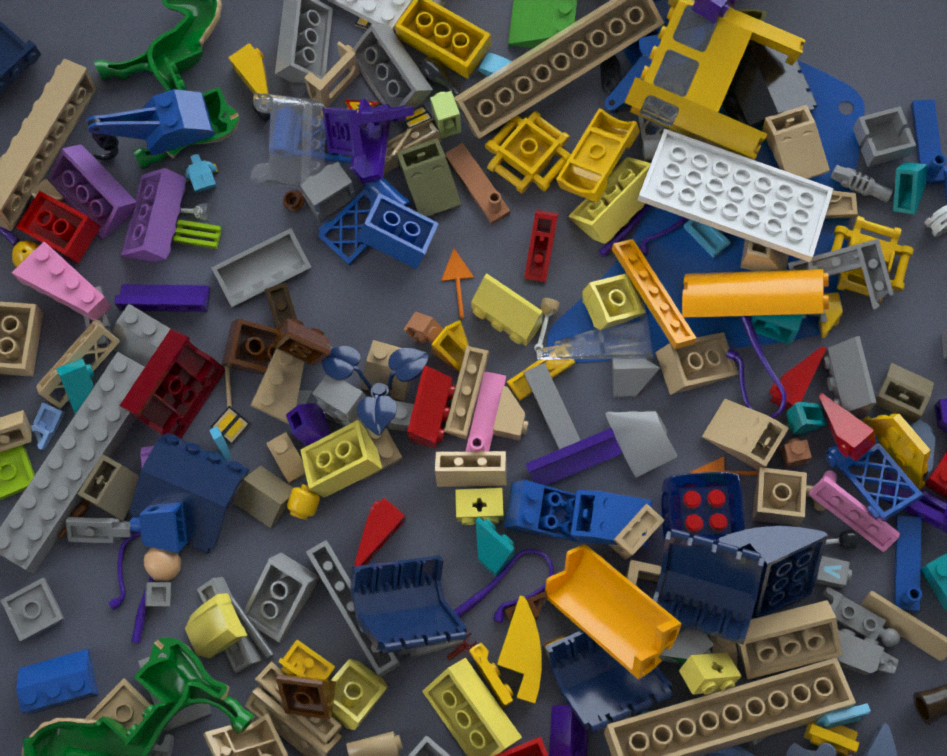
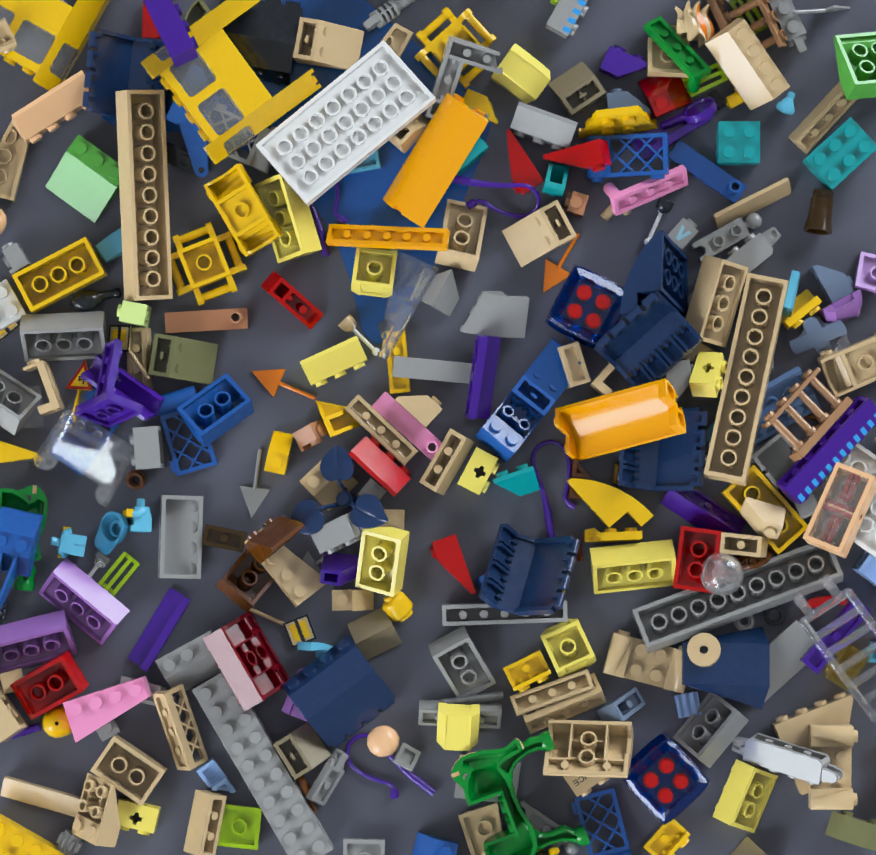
camera: 70 degrees left, 15 degrees up
(45, 303) = (108, 730): none -> light grey plate
(76, 382) = (199, 735): teal slope -> none
(162, 526) = (357, 726): blue torso -> none
(233, 205) = (111, 531): none -> dark azure cap
(258, 222) = (140, 517): none -> medium azure piece
(306, 695) = (553, 682): reddish brown slope -> none
(337, 313) = (253, 495): none -> light grey piece
(389, 311) = (279, 452): none -> yellow slope
(780, 496) = (603, 237): tan slope -> none
(884, 332) = (522, 75): none -> light yellow slope

